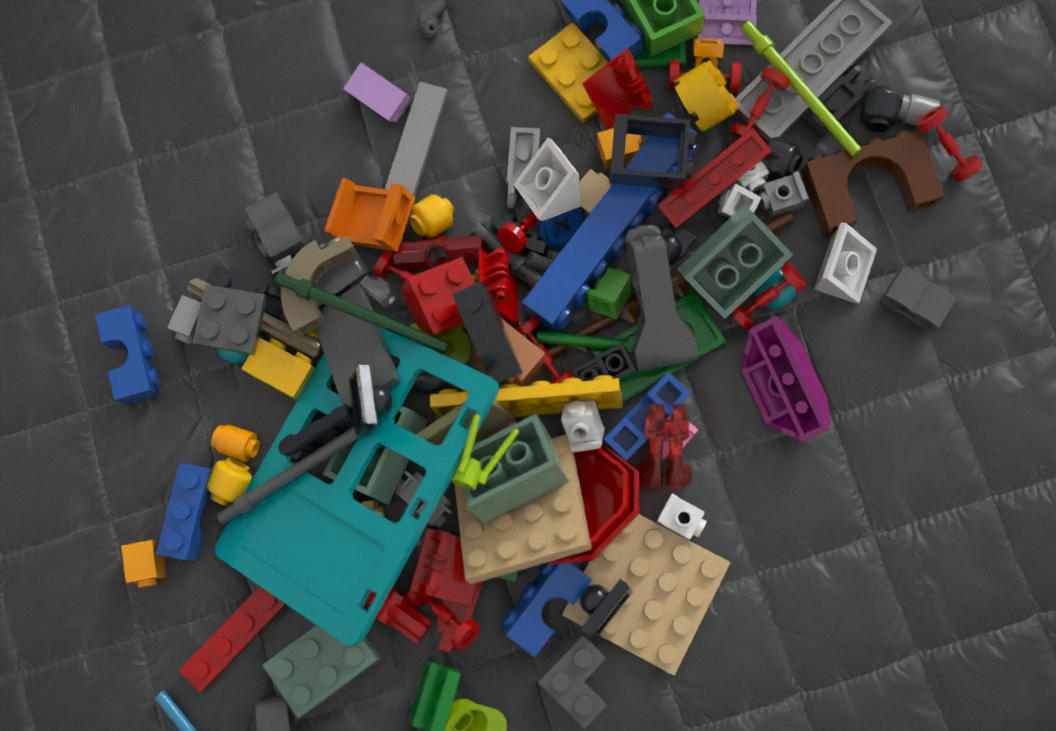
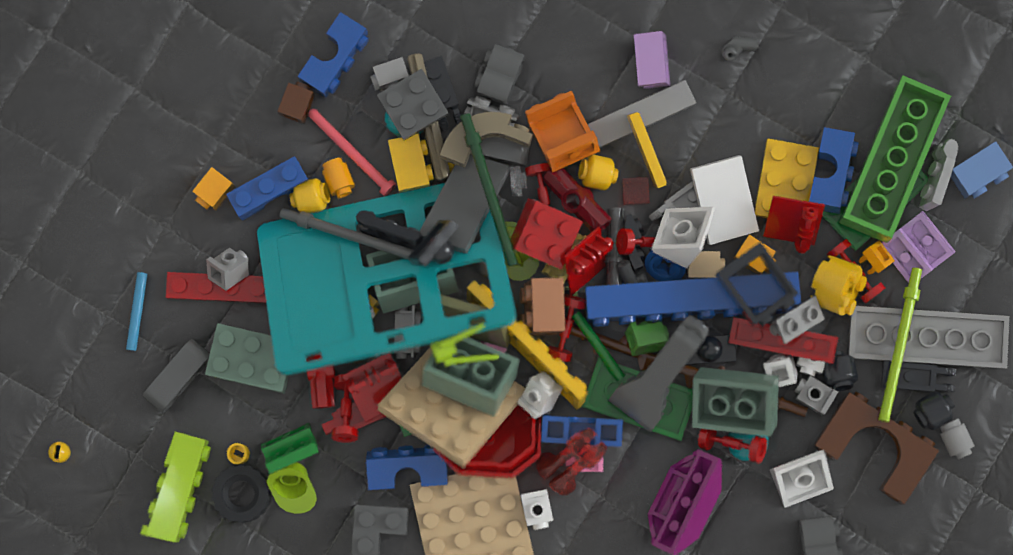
camera: 45 degrees right, 5 degrees up
(138, 422) = (296, 102): none -> reddish brown brick
(223, 611) = (227, 268): none -> light grey brick
(282, 407) = (385, 185): none -> coral bar
(449, 158) = (647, 149): none -> yellow tile
(476, 200) = (635, 191): none -> clear red tile
(487, 331) = (544, 283): black slope -> none
(538, 117) = (726, 189): none -> white tile
(602, 605) = (436, 505): black tile -> none
(612, 362) = (593, 376): black slope -> none
(708, 150) = (797, 320): none -> light grey hinge
(775, 80) = (865, 327): red wheel -> none
(965, 167) = (942, 502): red wheel -> none

